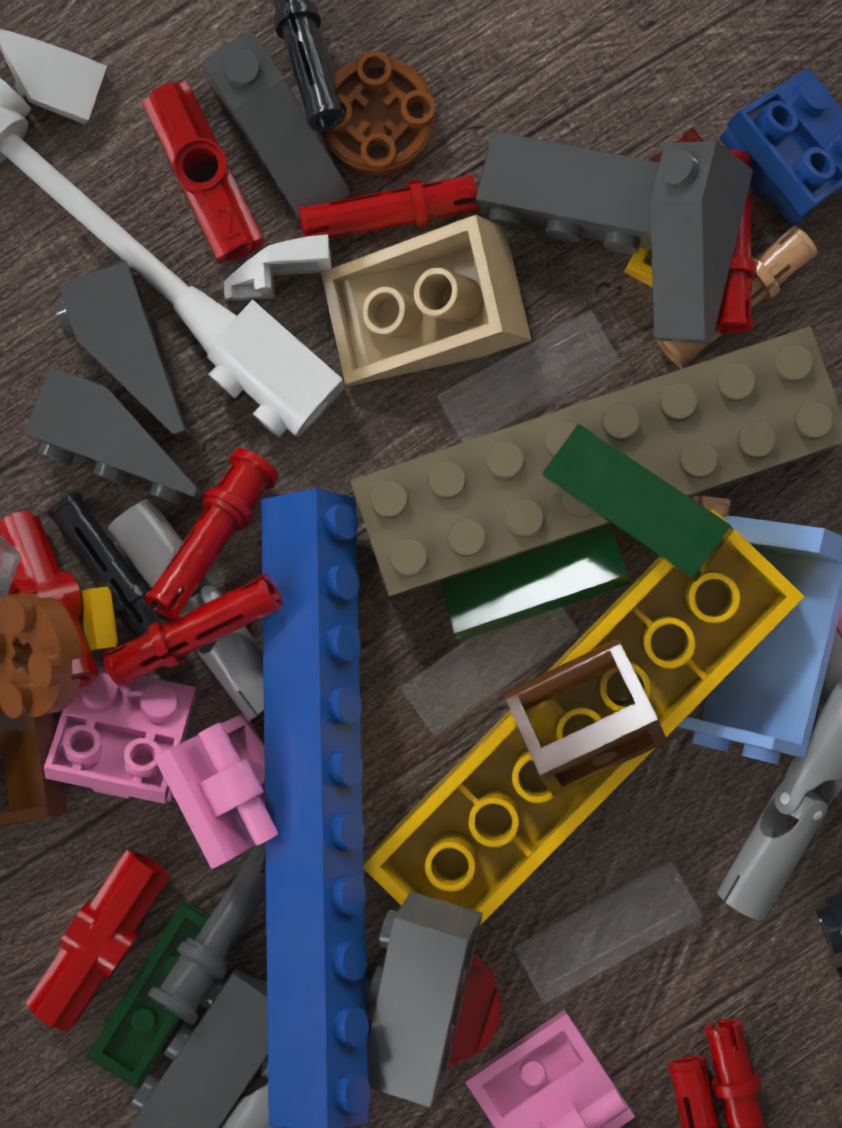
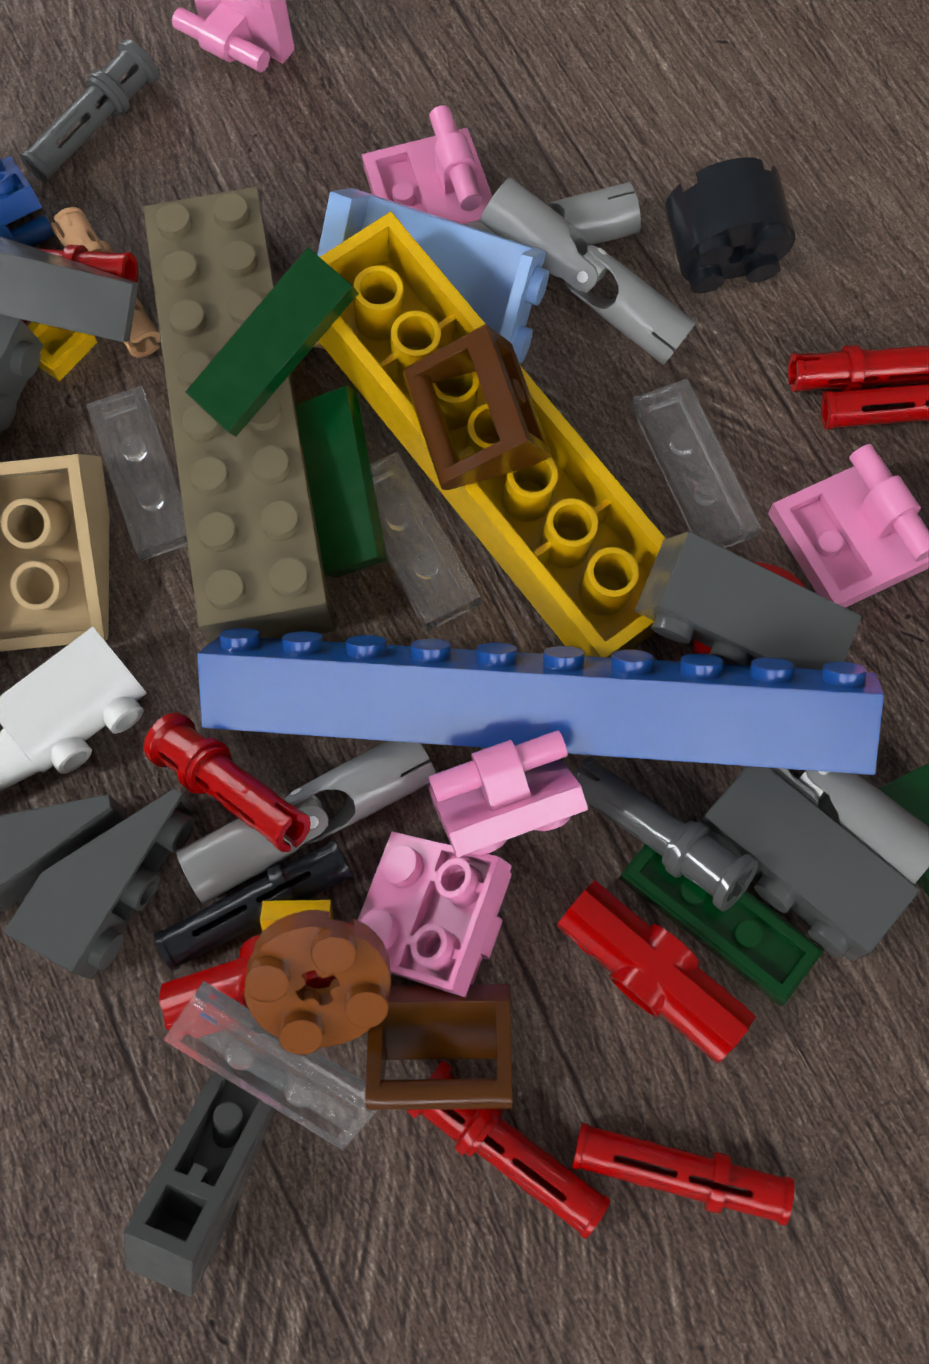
camera: 75 degrees left, 15 degrees down
(170, 641) = (325, 805): red pin -> none

